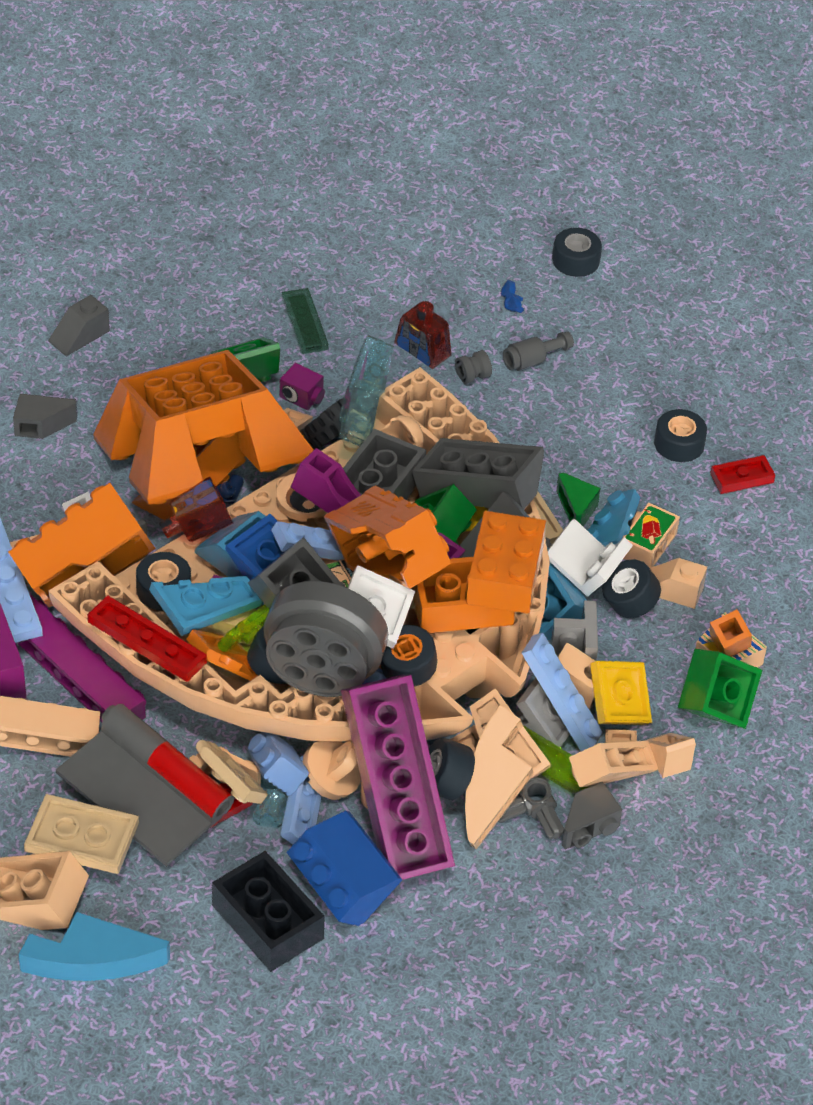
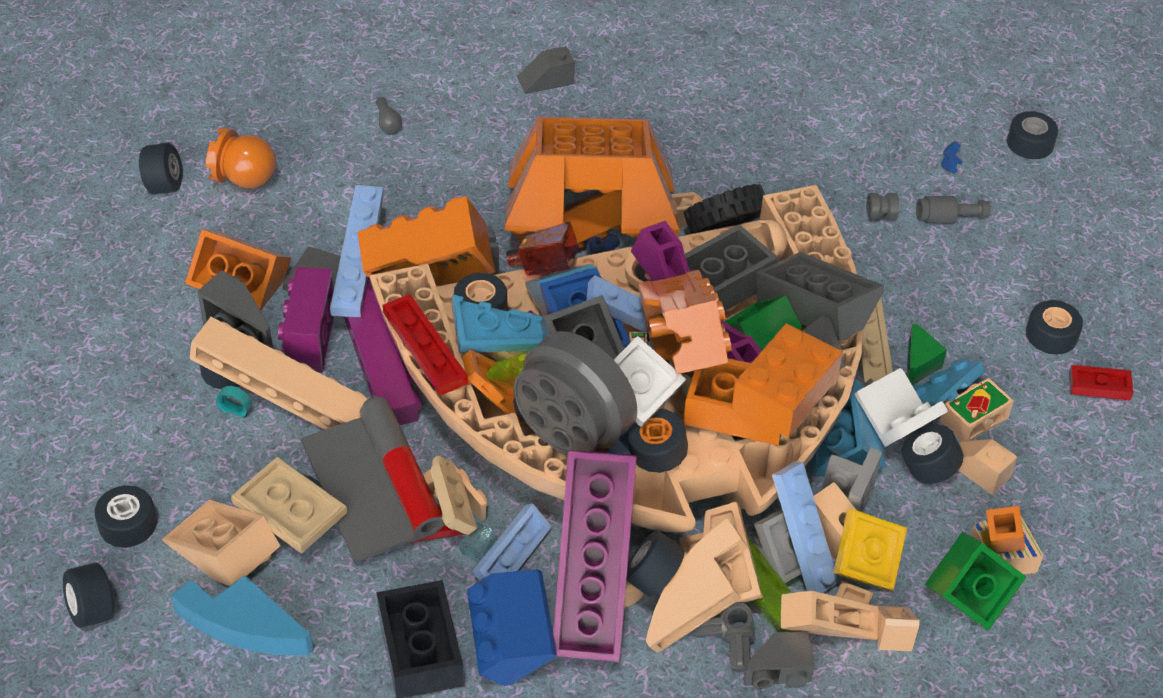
camera: 25 degrees right, 0 degrees up
(43, 415) = (473, 134): dark grey slope -> none
(258, 356) = (679, 140): green slope -> none
(277, 762) = (503, 501): medium blue brick -> none
(302, 386) = (713, 175): magenta brick -> none
(305, 321) = (749, 124): clear green tile -> none
(332, 768) = (544, 525): light nougat tile -> none
(364, 389) = (750, 187): clear light blue slope -> none
(424, 335) = (848, 164): clear red torso -> none

